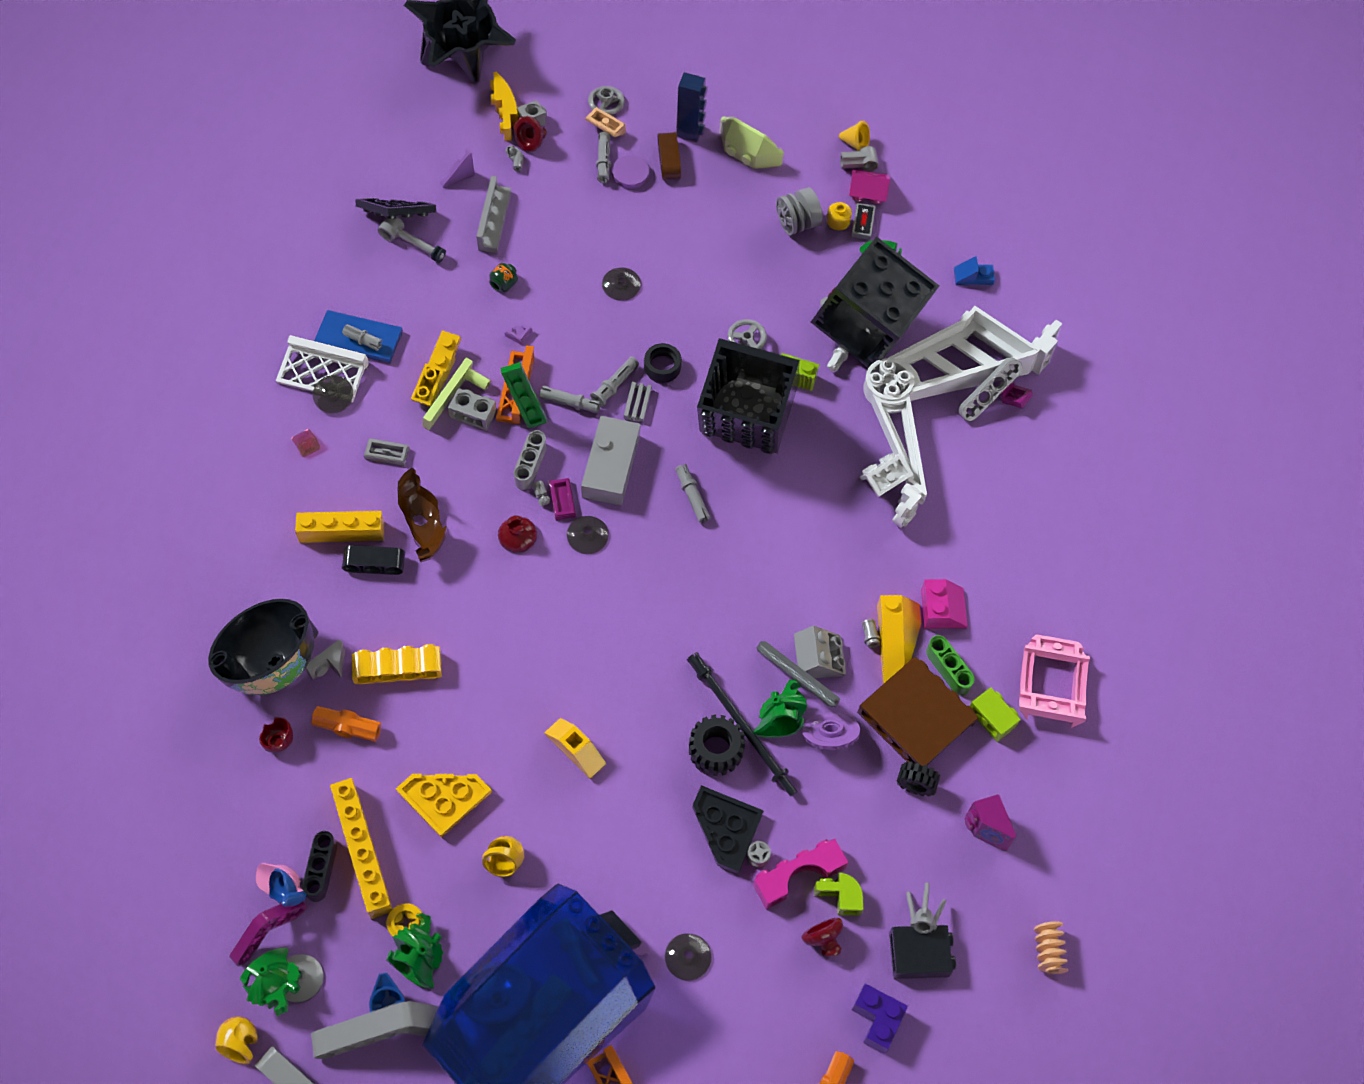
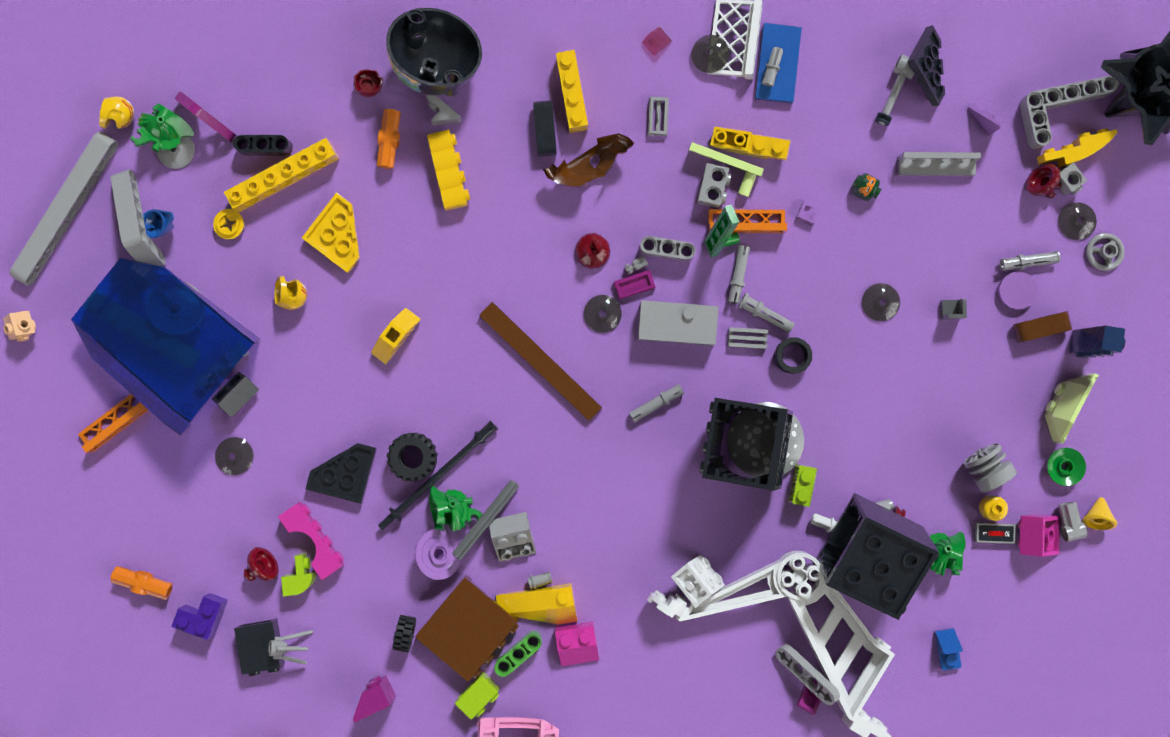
camera: 85 degrees right, 25 degrees up
(280, 884) = (241, 120): blue hair -> none
(417, 952) = (202, 239): green helmet -> none
(457, 132) = (1060, 98): none -> light grey beam
(516, 156) = (1016, 173): light grey arm -> none
(571, 118) = (1069, 223): none -> clear smoke dish
(606, 122) = (1072, 256): light nougat slope -> none
(628, 602) = (540, 361): none -> reddish brown tile
(639, 222) = (953, 309): none -> dark grey panel
(750, 341) = (828, 436): light grey piece -> none
(758, 849) = (320, 505): light grey wheel -> none
(806, 155) = (1074, 469): none -> green dish

